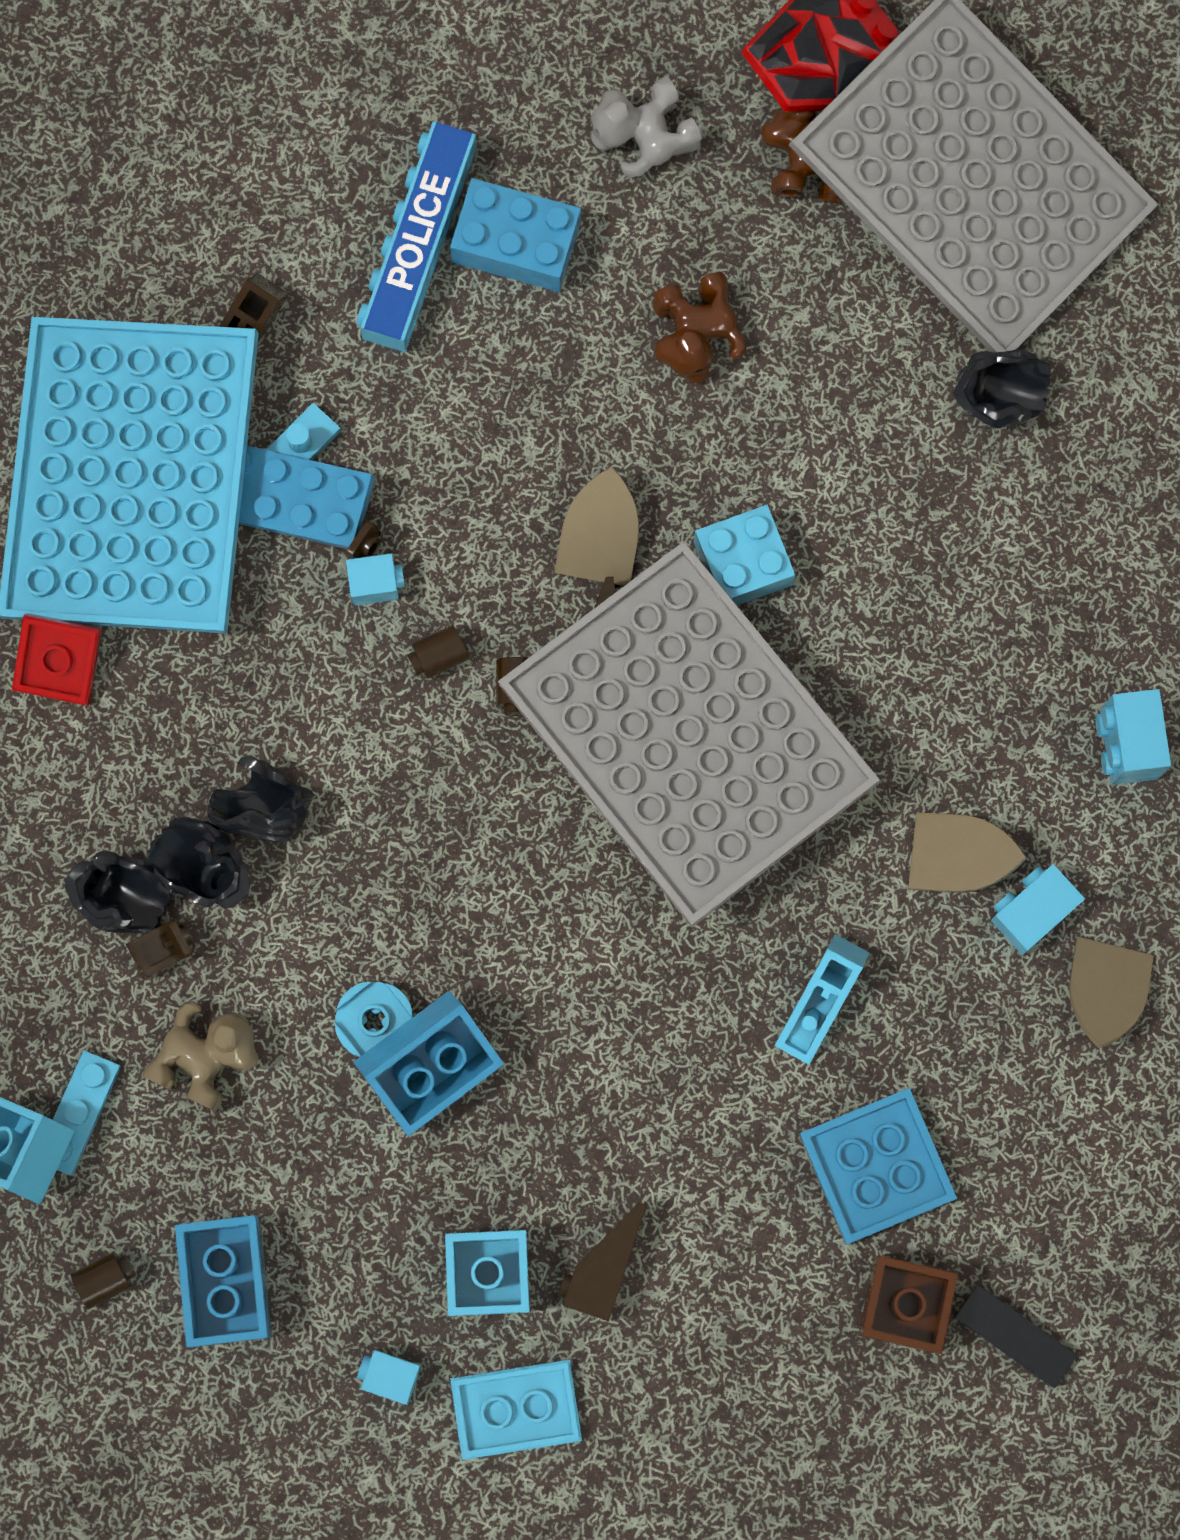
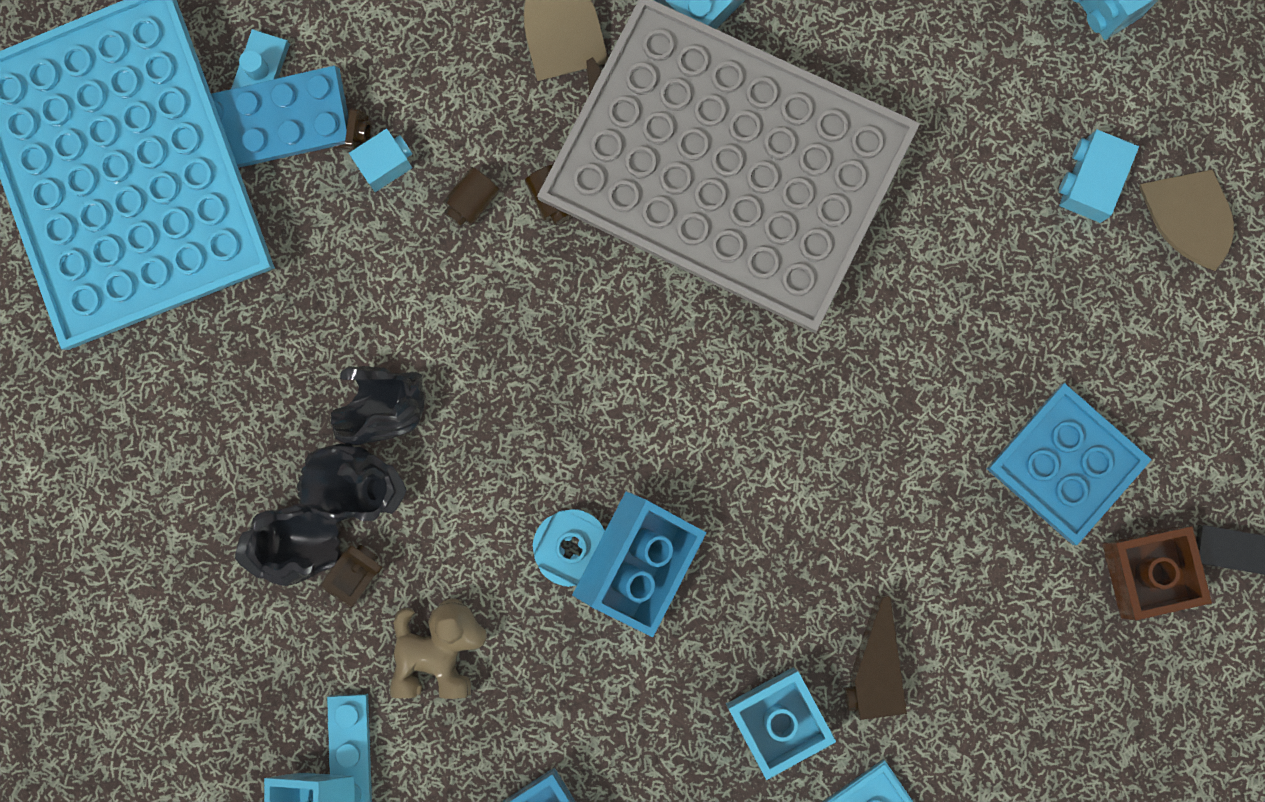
camera: 25 degrees left, 5 degrees up
(56, 659) = (133, 362): red tile -> none
(822, 999) = (952, 340): medium azure slope -> none
(960, 853) = (1009, 159): dark tan shield -> none

